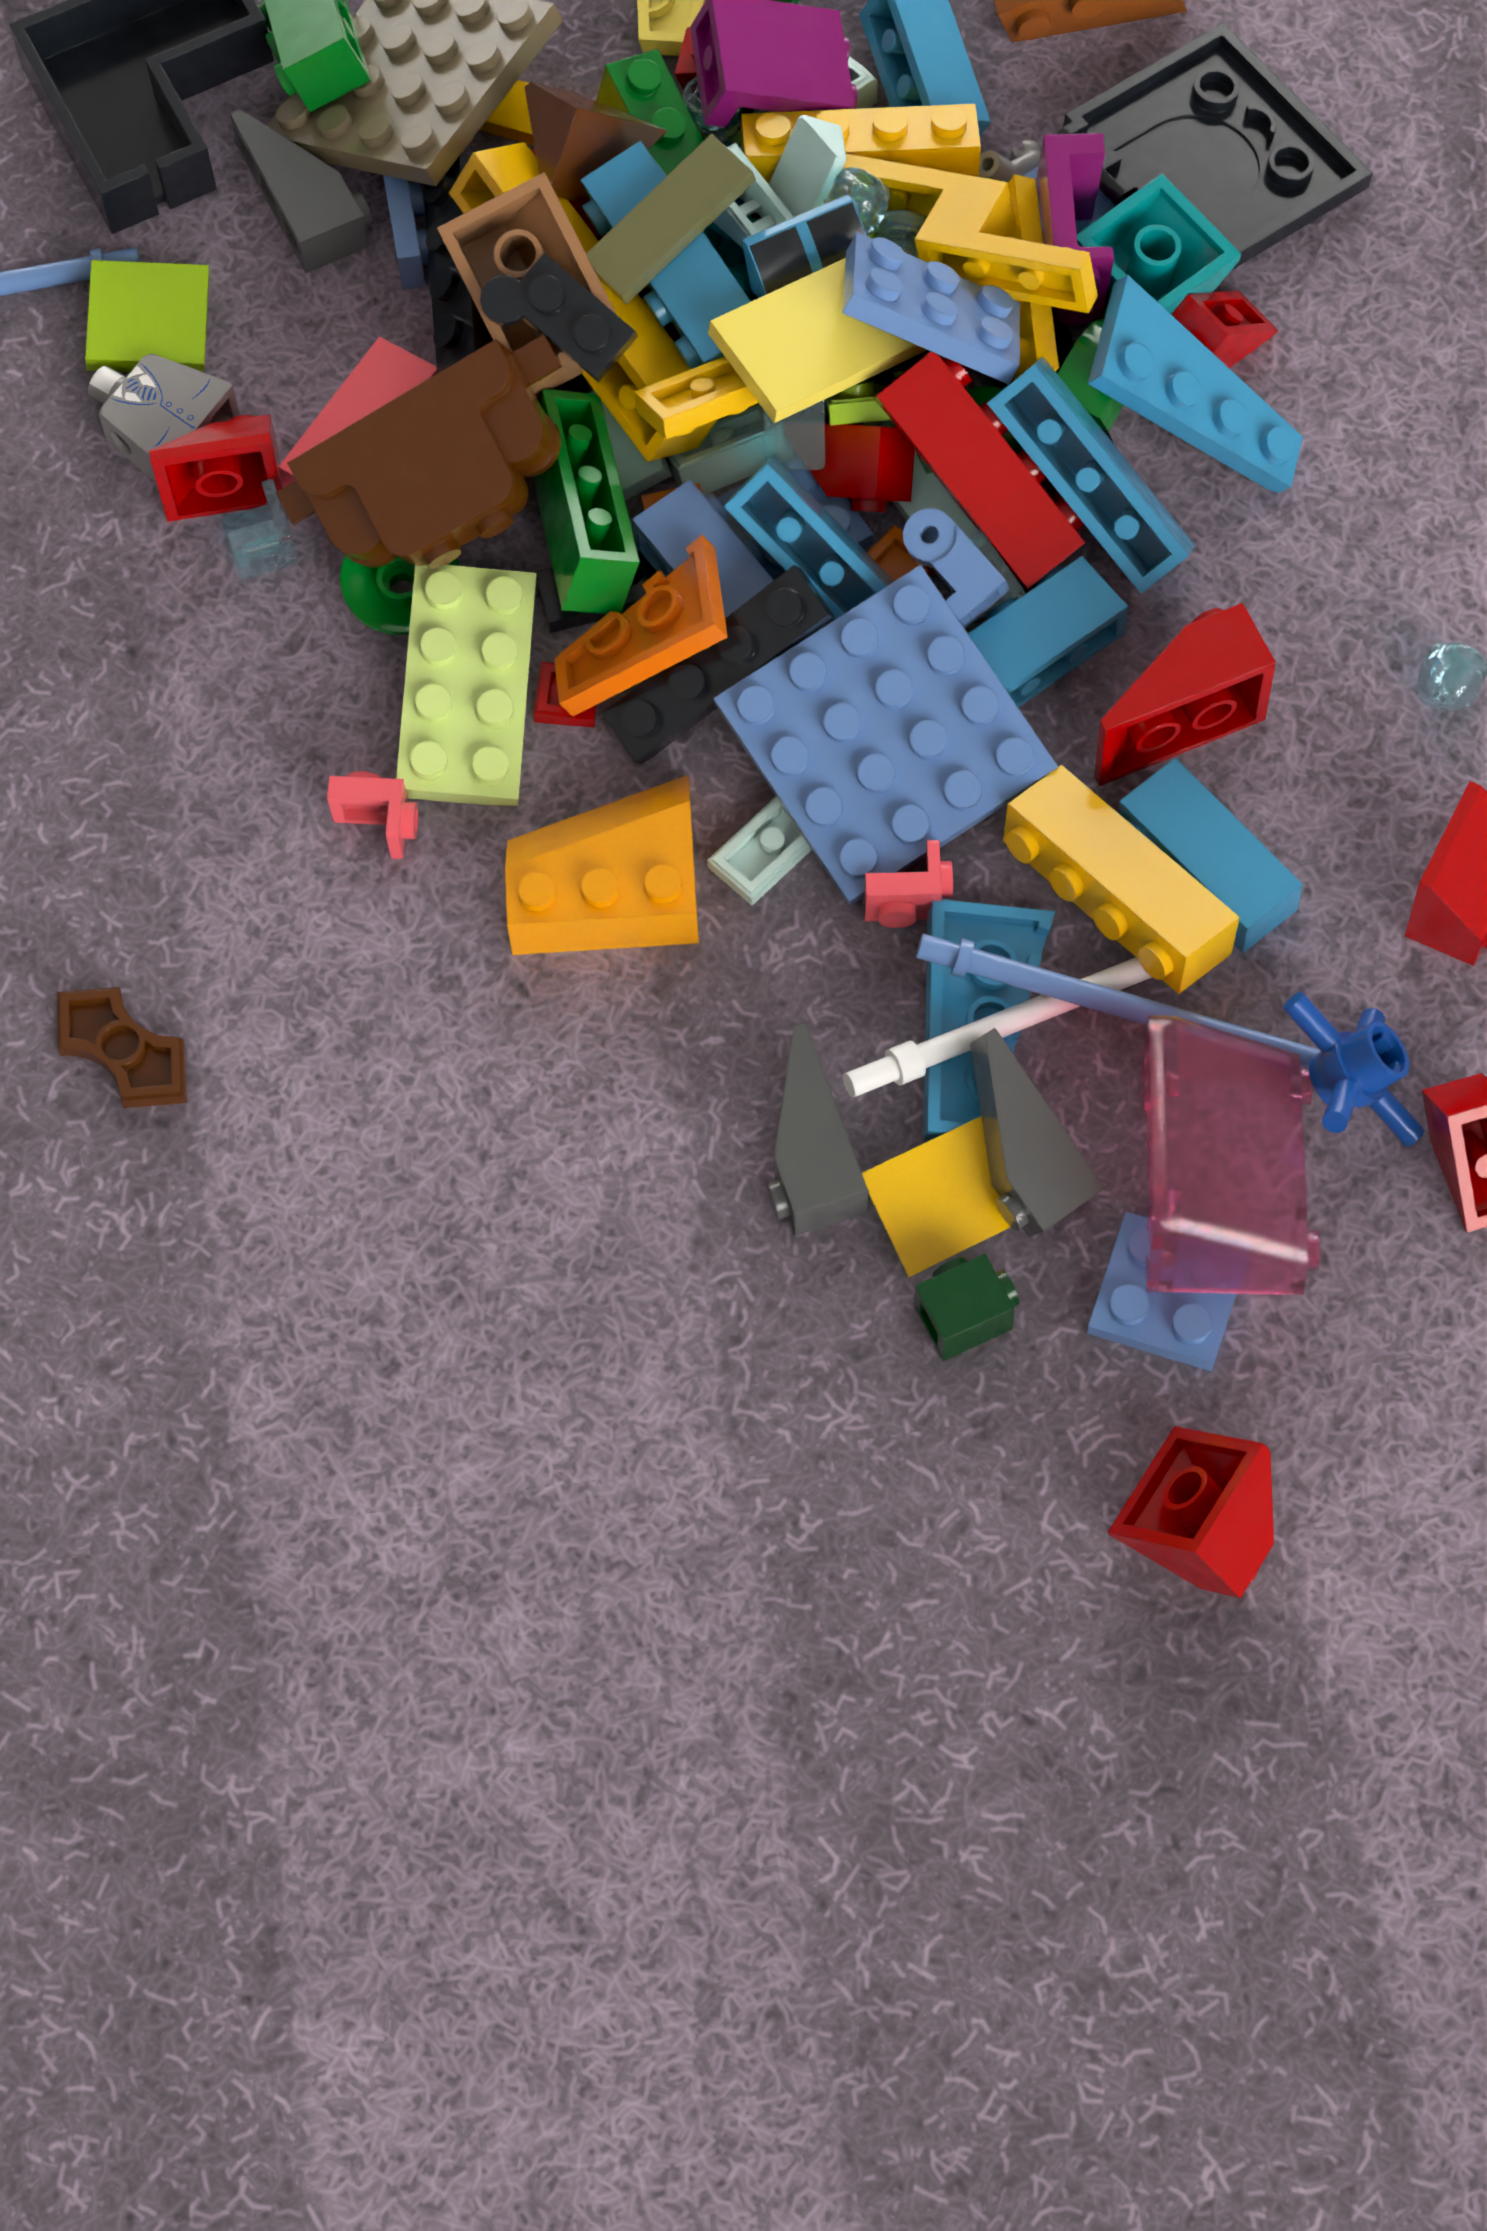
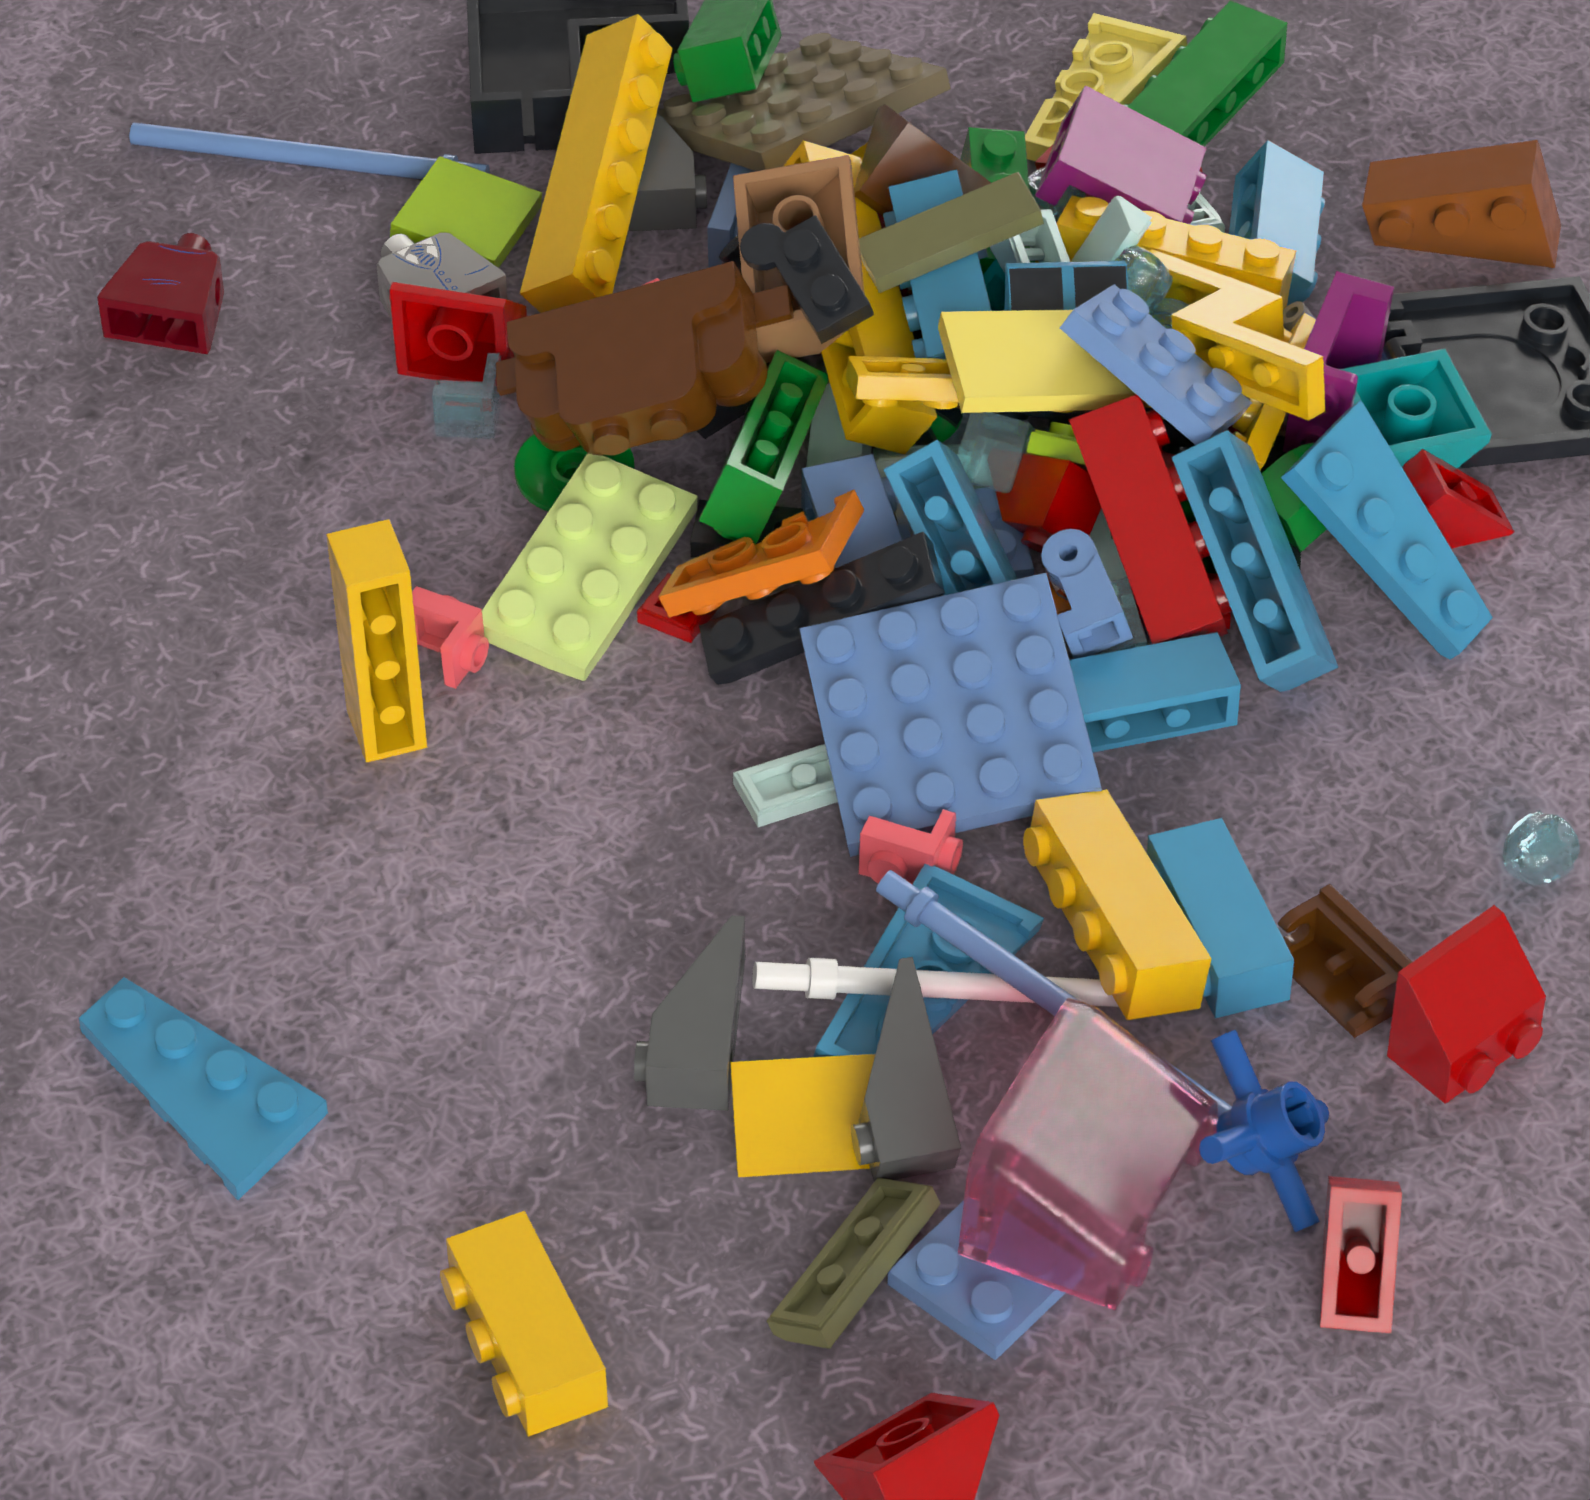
camera: 20 degrees right, 20 degrees down
(144, 1064) = (122, 765): reddish brown tile -> none
(263, 231) = (597, 166): none -> yellow brick
(348, 869) = (377, 640): none -> yellow brick
(409, 1375) = (215, 1094): none -> dark azure wing
(606, 877) = (627, 759): light orange wedge -> none
(806, 1505) = (524, 1324): none -> yellow brick
(965, 1304) = (775, 1209): dark green brick -> none
(1055, 1328) = (853, 1262): none -> olive tile
(1193, 693) = (1257, 768): red slope -> none
(1338, 859) = (1343, 960): none -> reddish brown hinge

